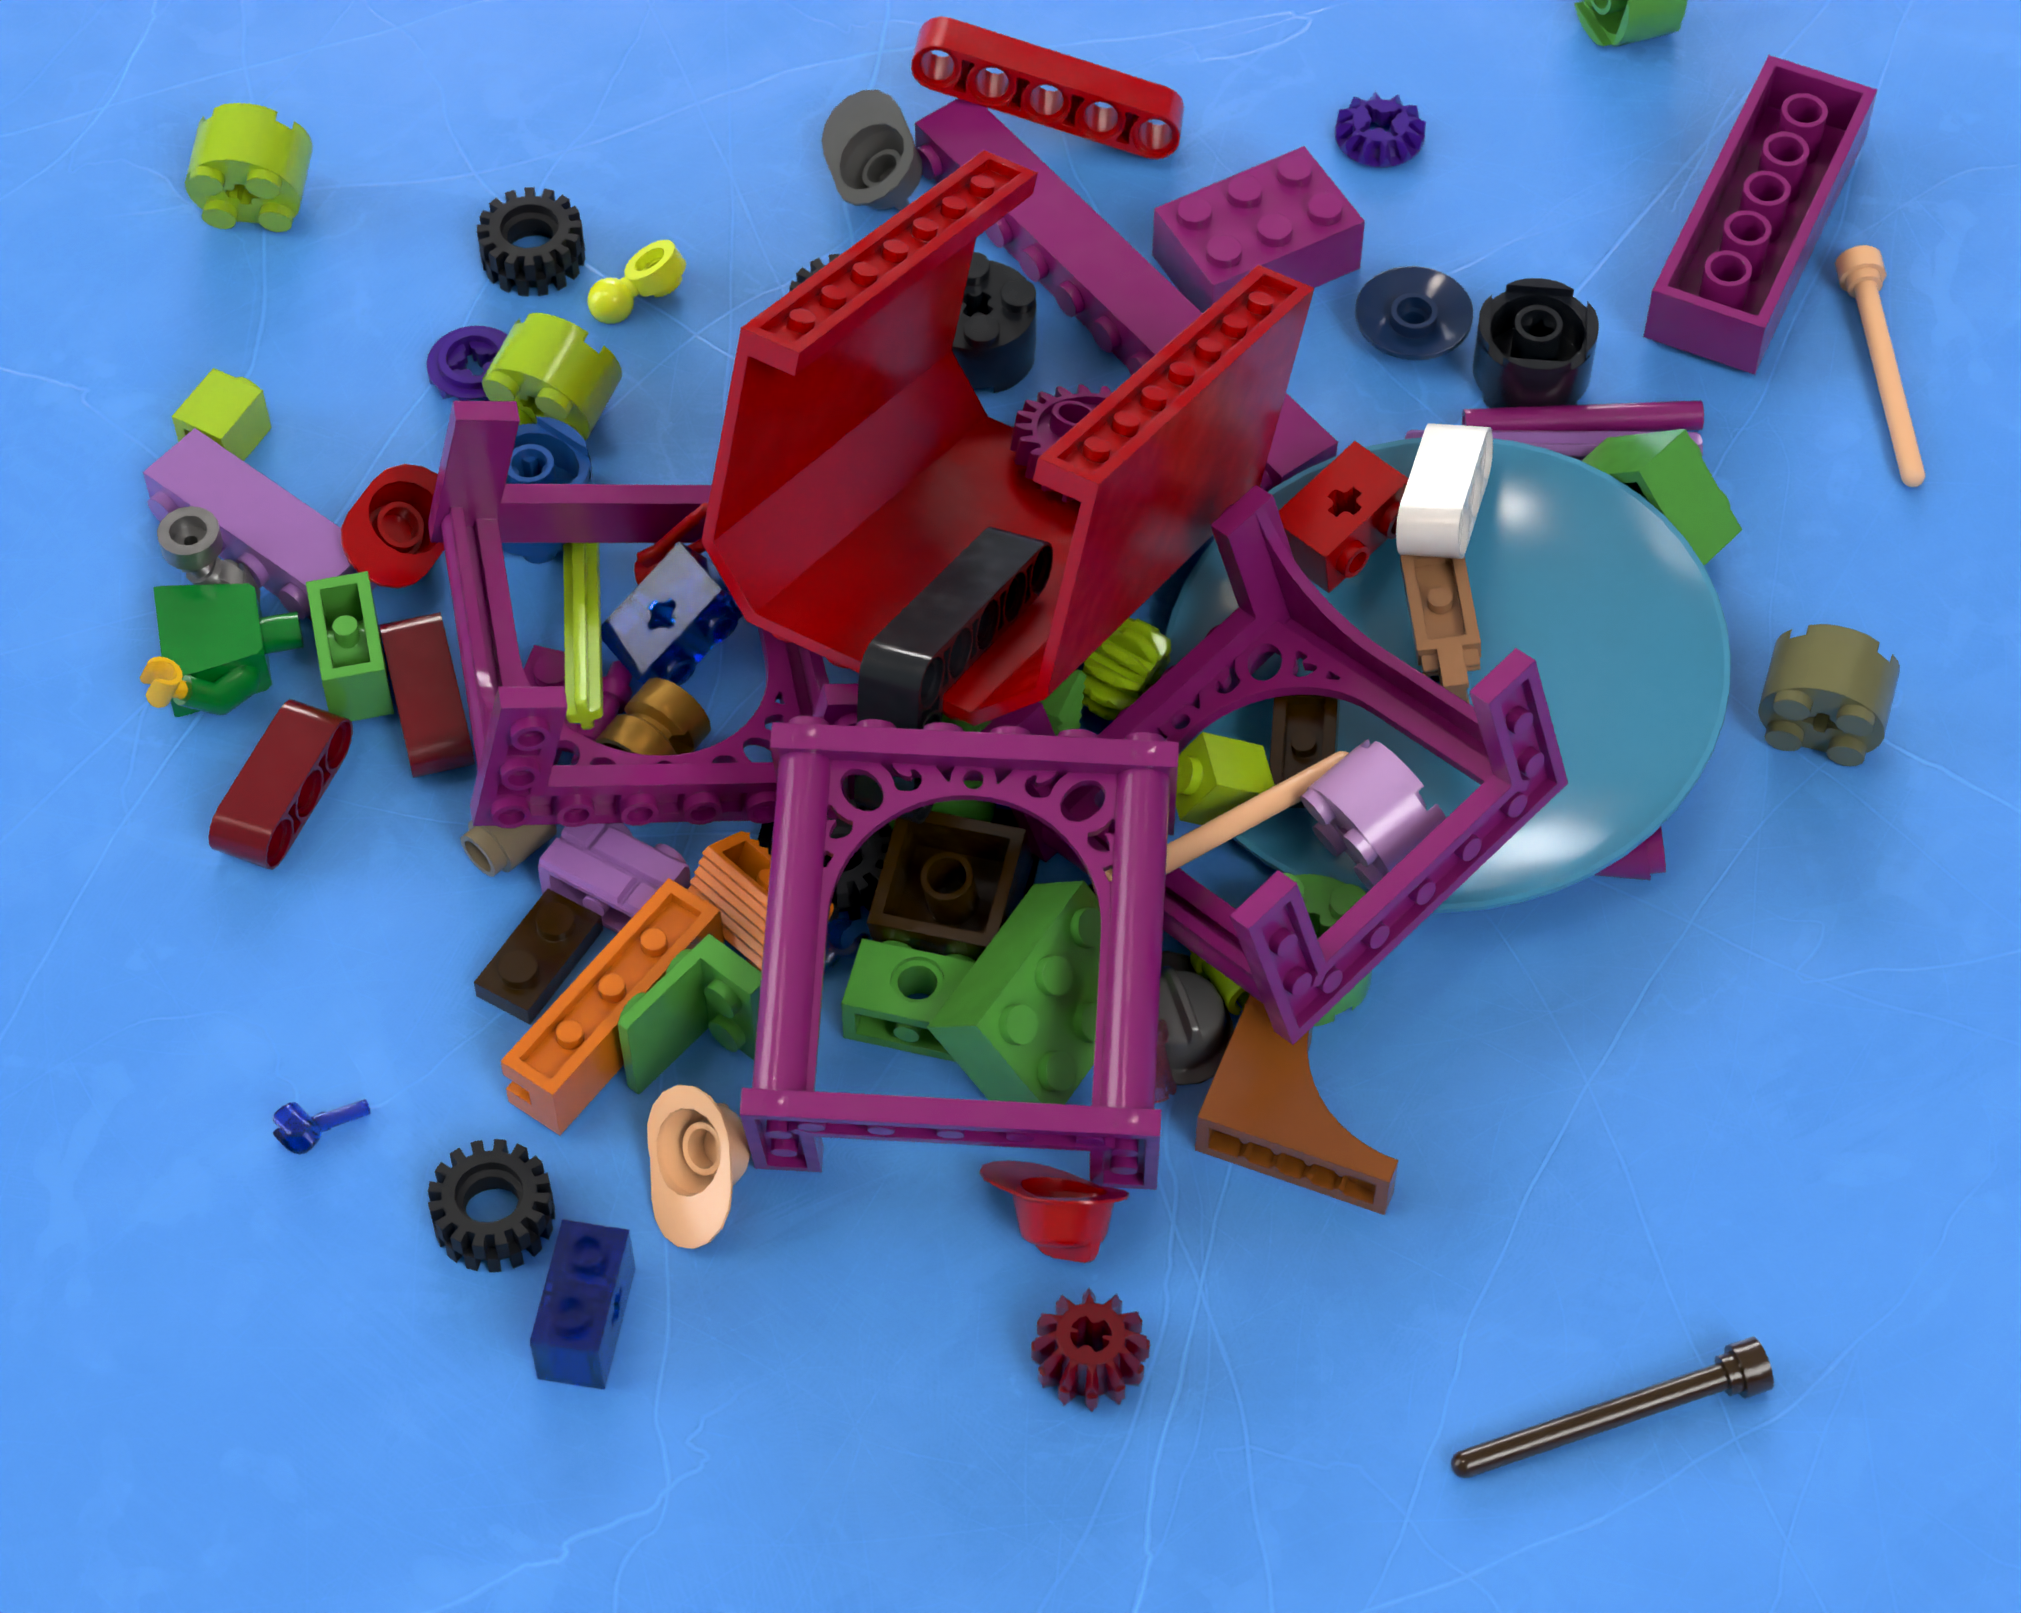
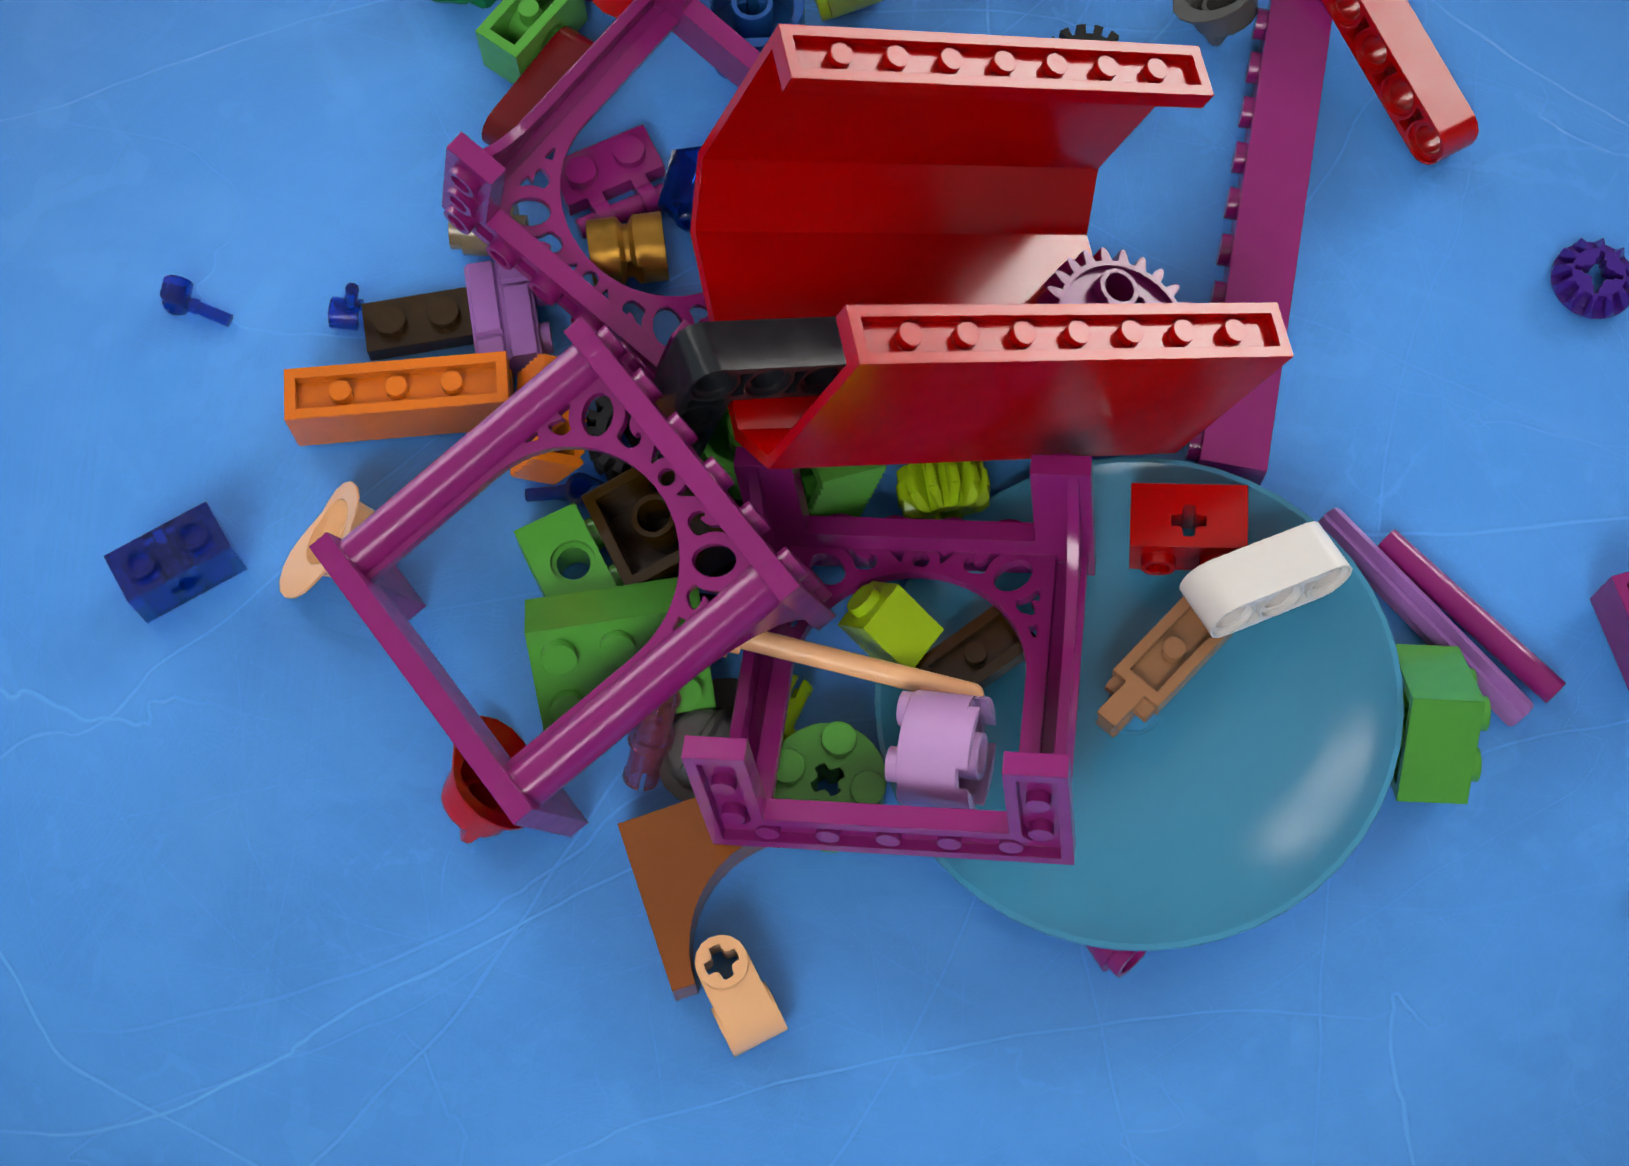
camera: 50 degrees right, 15 degrees up
(280, 784) = (408, 75): dark red beam -> none
(469, 999) = (344, 311): none -> clear blue hand
(491, 1239) = (193, 426): black tyre -> none
(582, 633) = (647, 149): lime axle -> none
(699, 992) = (412, 438): bright green bracket -> none
(996, 326) = (1152, 171): black brick -> none
(1090, 1349) = (379, 913): dark red gear -> none
(1269, 215) = (1406, 278): magenta brick -> none
(1414, 313) = (1460, 415): dark blue dish -> none
(1434, 1149) = (742, 1002): none -> light nougat piece
(1534, 345) = (1498, 505): black brick -> none
(1828, 693) = (1370, 979): olive brick -> none

